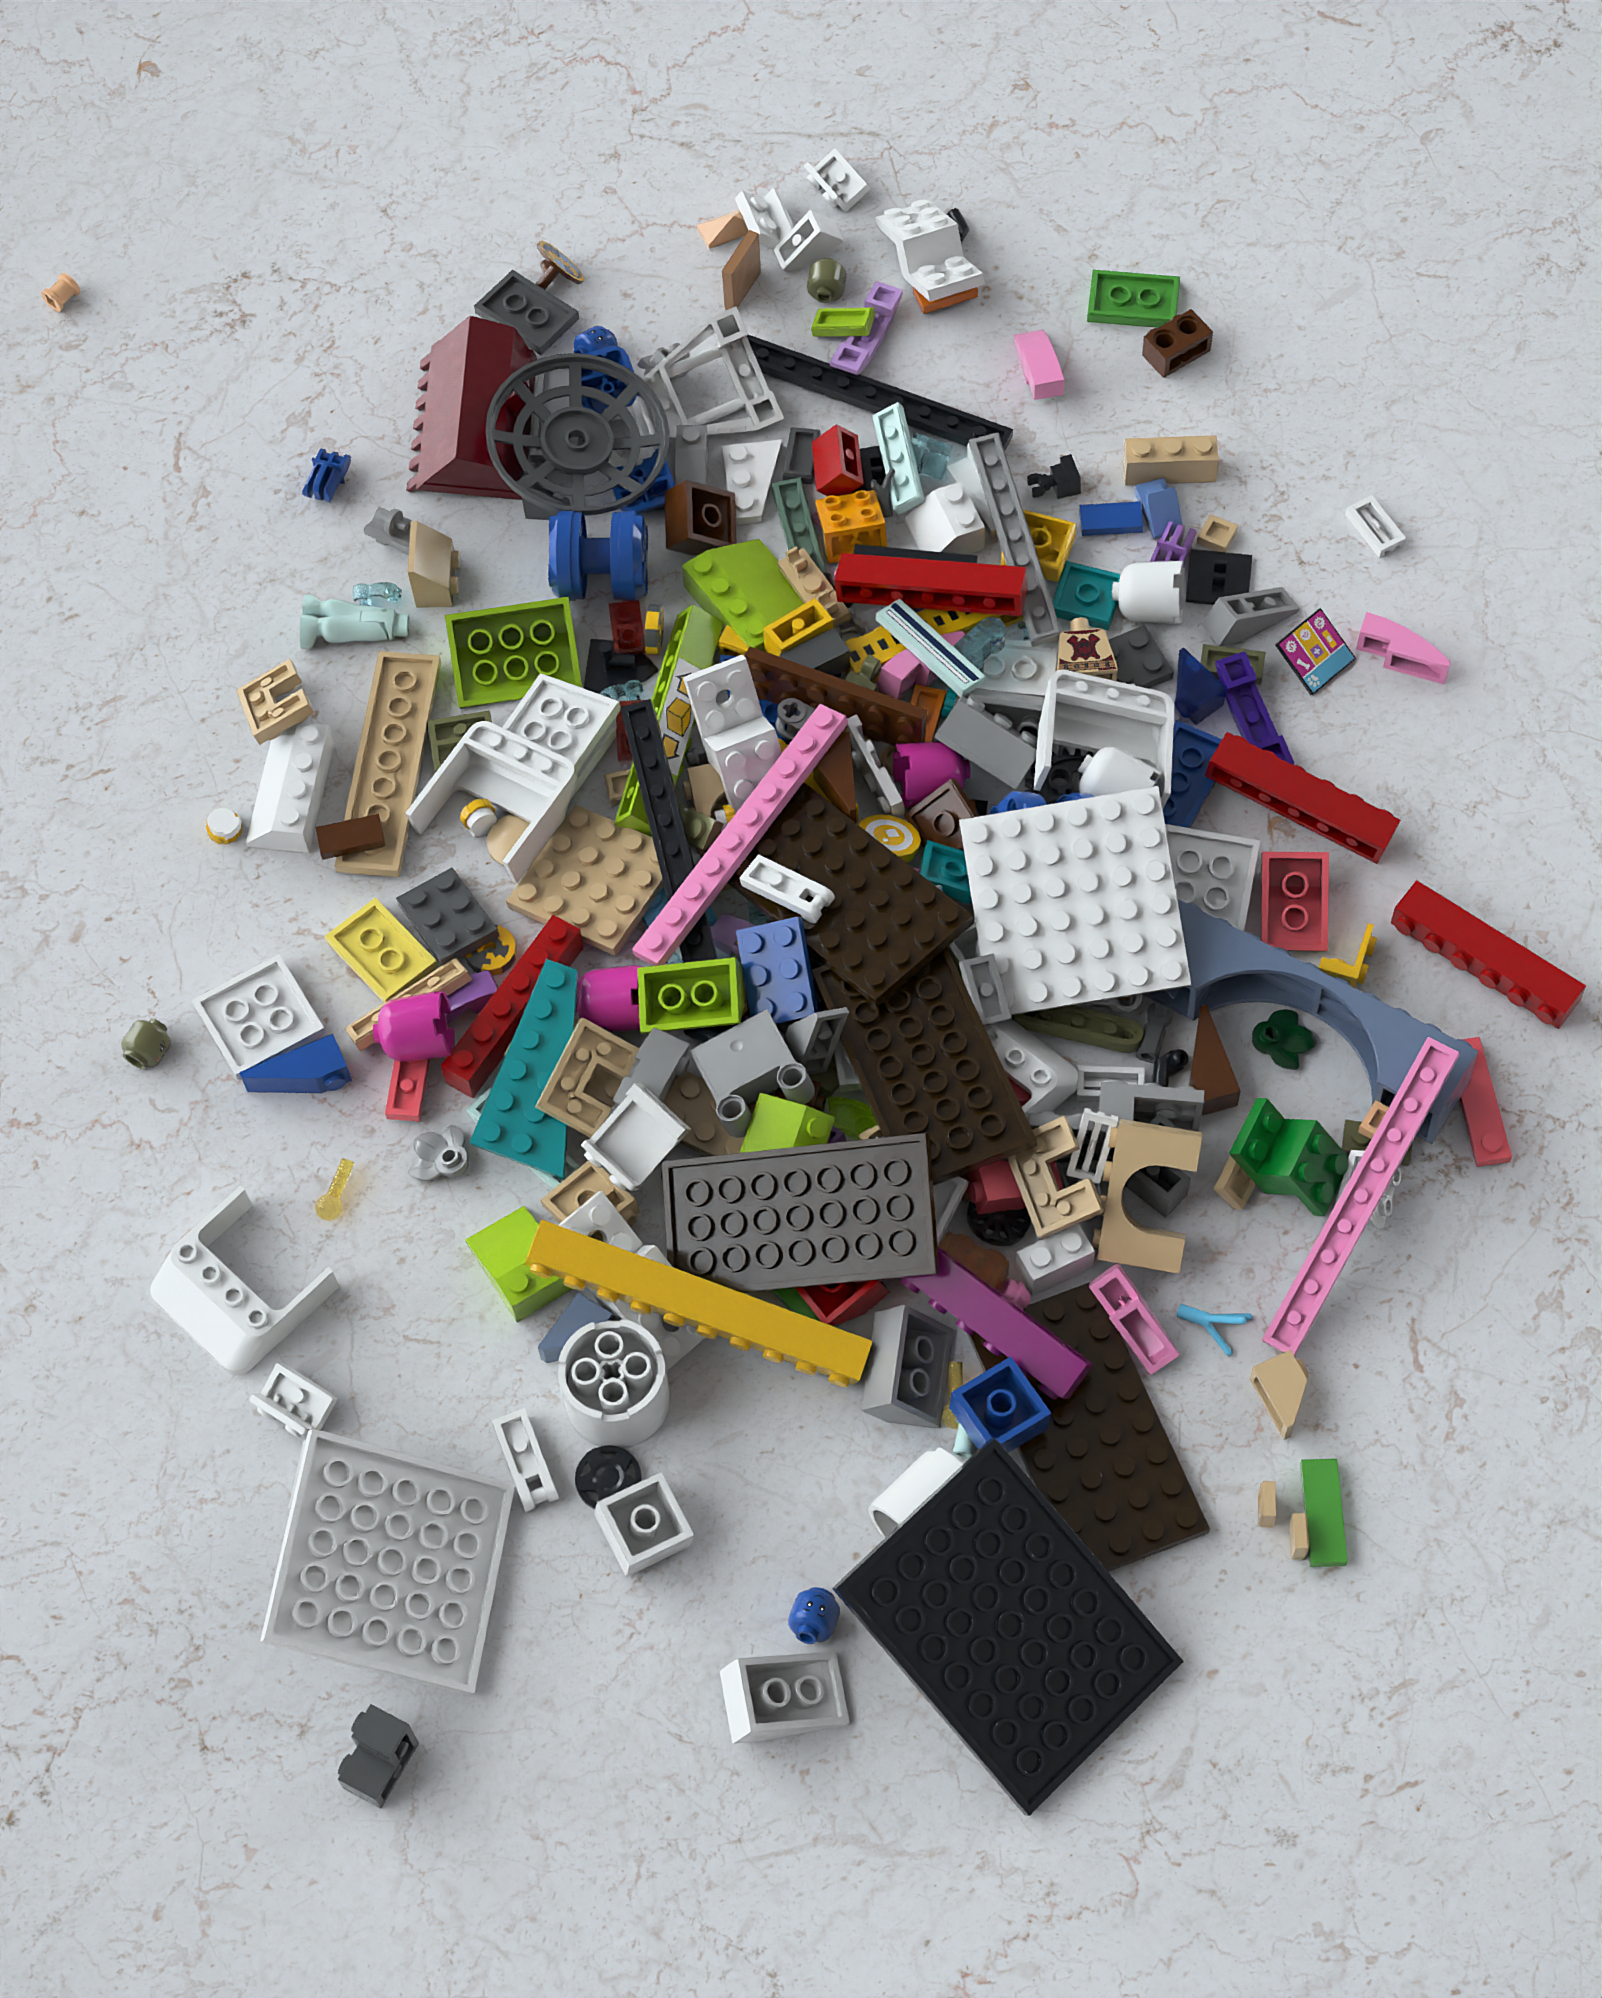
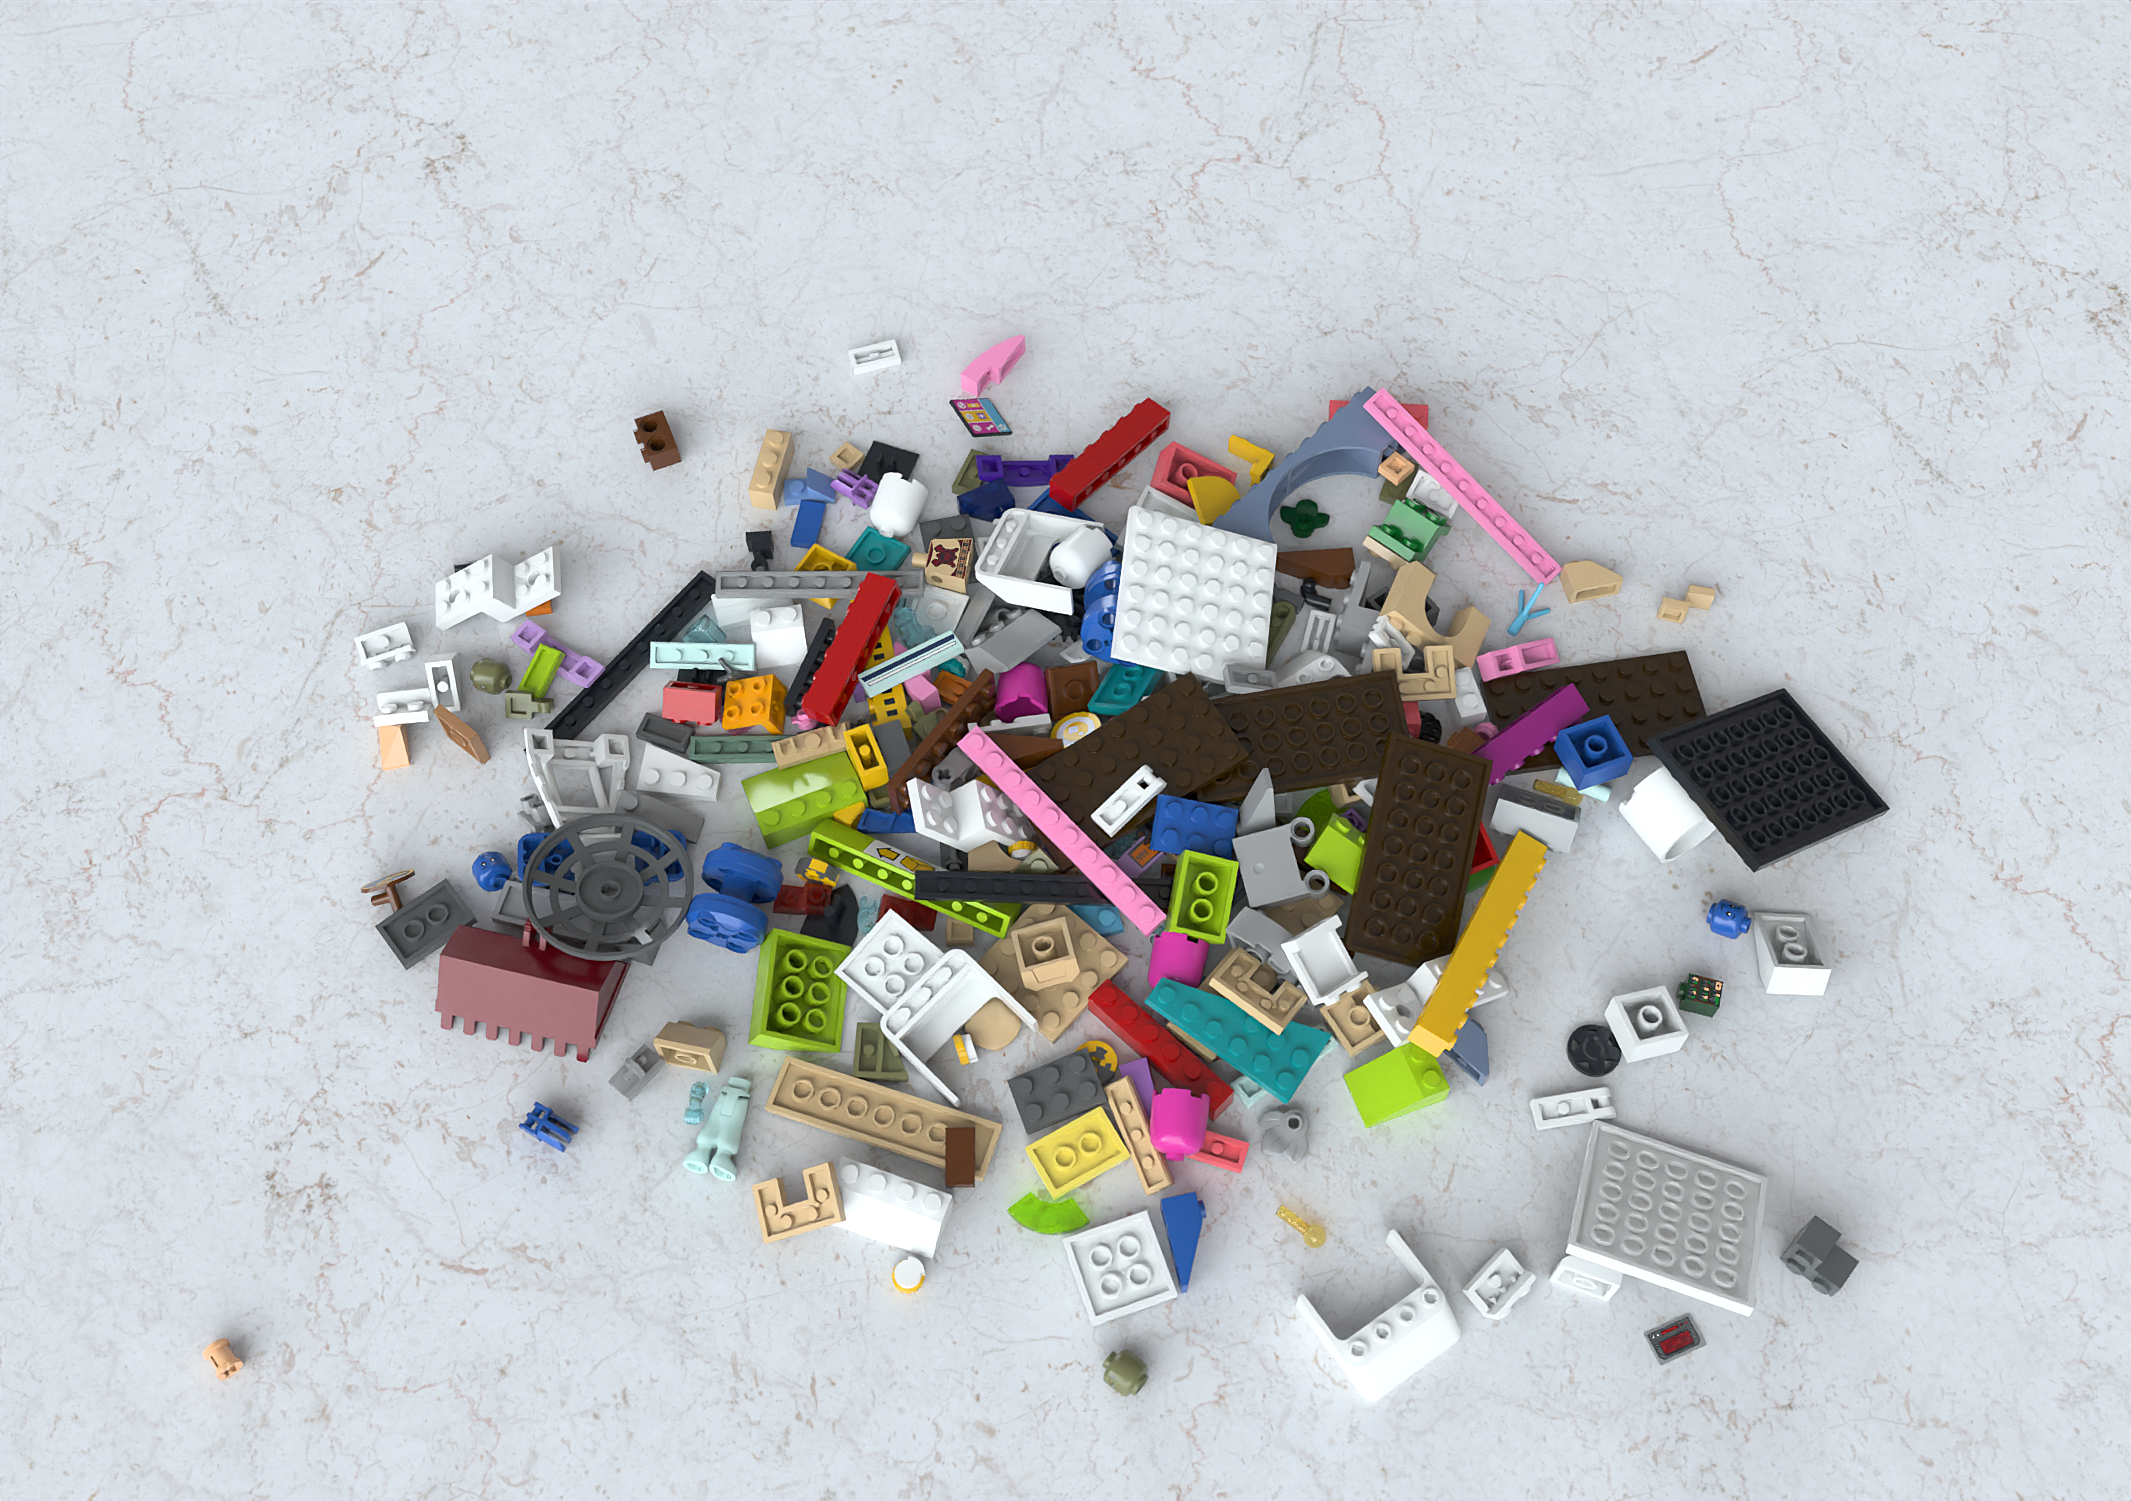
camera: 80 degrees left, 0 degrees up
(254, 1603) = (1675, 1339): none -> sticker
(307, 939) = (1048, 1217): none -> clear neon green tile
(593, 856) = (1045, 954): none -> tan slope
(620, 1409) = (1524, 1041): white brick -> none
(699, 518) = (713, 817): reddish brown slope -> none
(701, 1590) = (1699, 995): none -> brick
(796, 318) = (523, 705): none -> olive plate
(1040, 364) = (640, 538): bright pink slope -> none
(1132, 298) = (597, 463): bright green tile -> none
(1247, 614) = (933, 453): light grey slope -> none
(1272, 919) = (1211, 497): none -> yellow tile
(1323, 1512) = (1675, 579): bright green tile -> none
(1487, 954) = (1265, 378): red brick -> none

